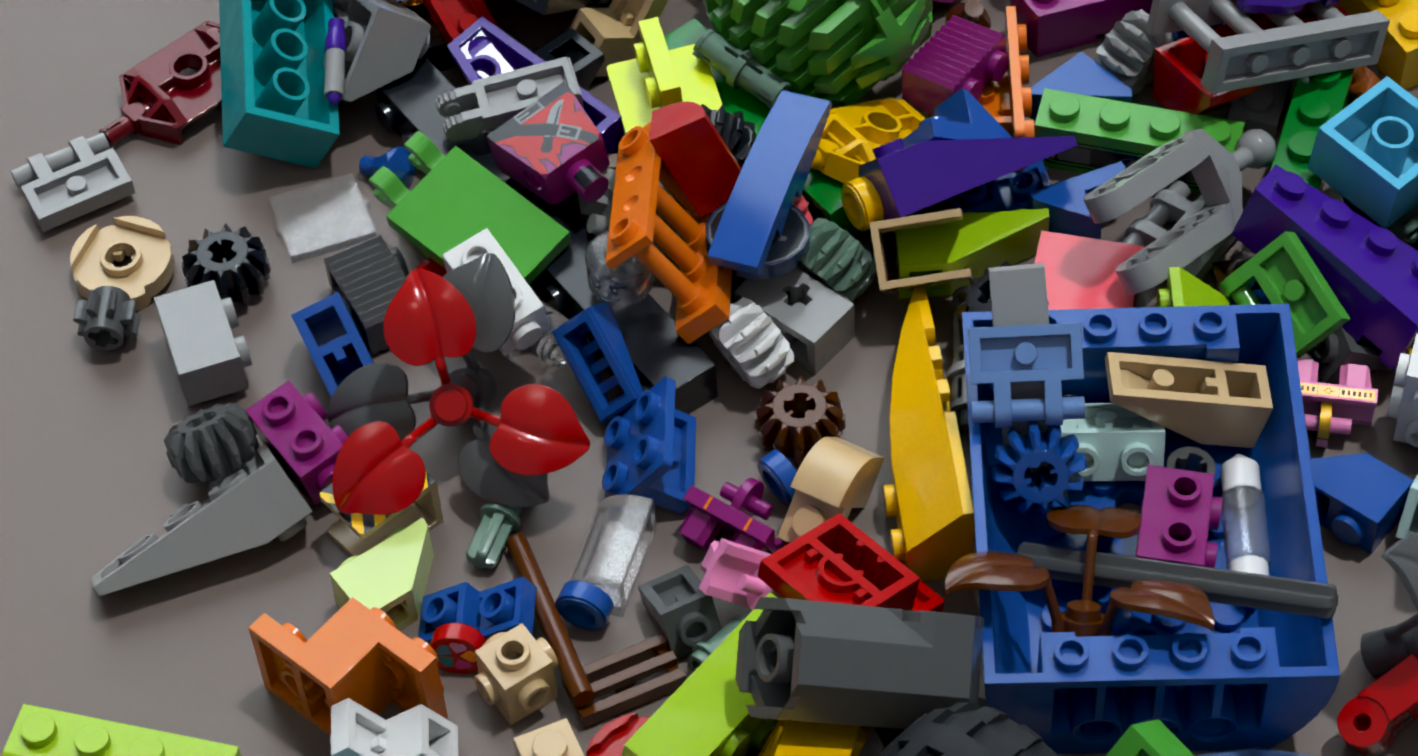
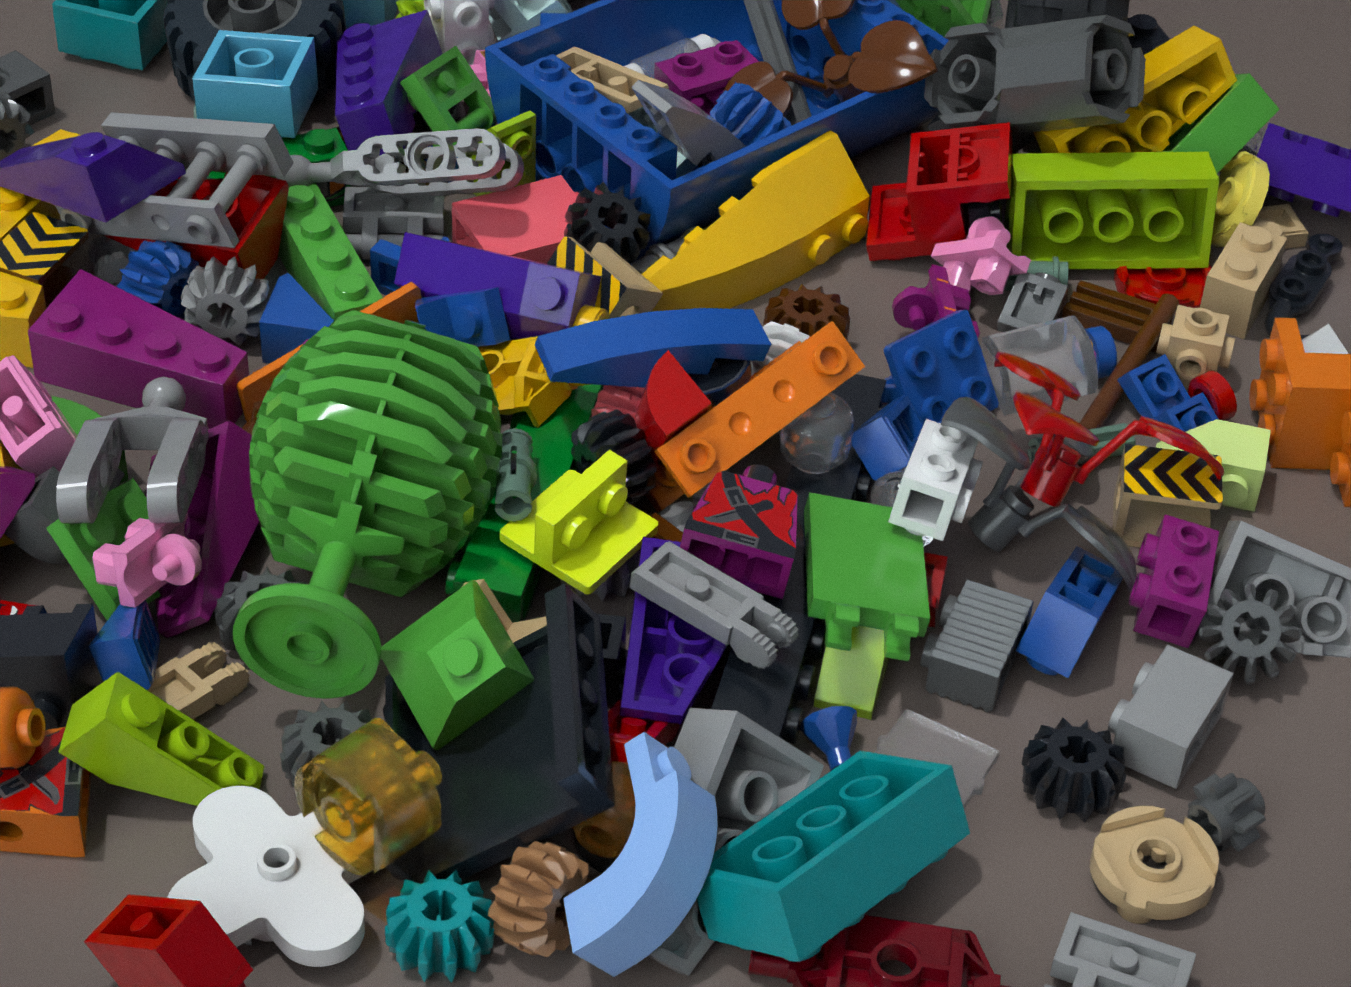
camera: 135 degrees left, 10 degrees down
(334, 61) = (791, 787): piece -> none
(778, 475) = (867, 312): blue tile -> none
(829, 482) = (849, 262): tan brick -> none
(1026, 355) = (717, 94): medium blue plate -> none

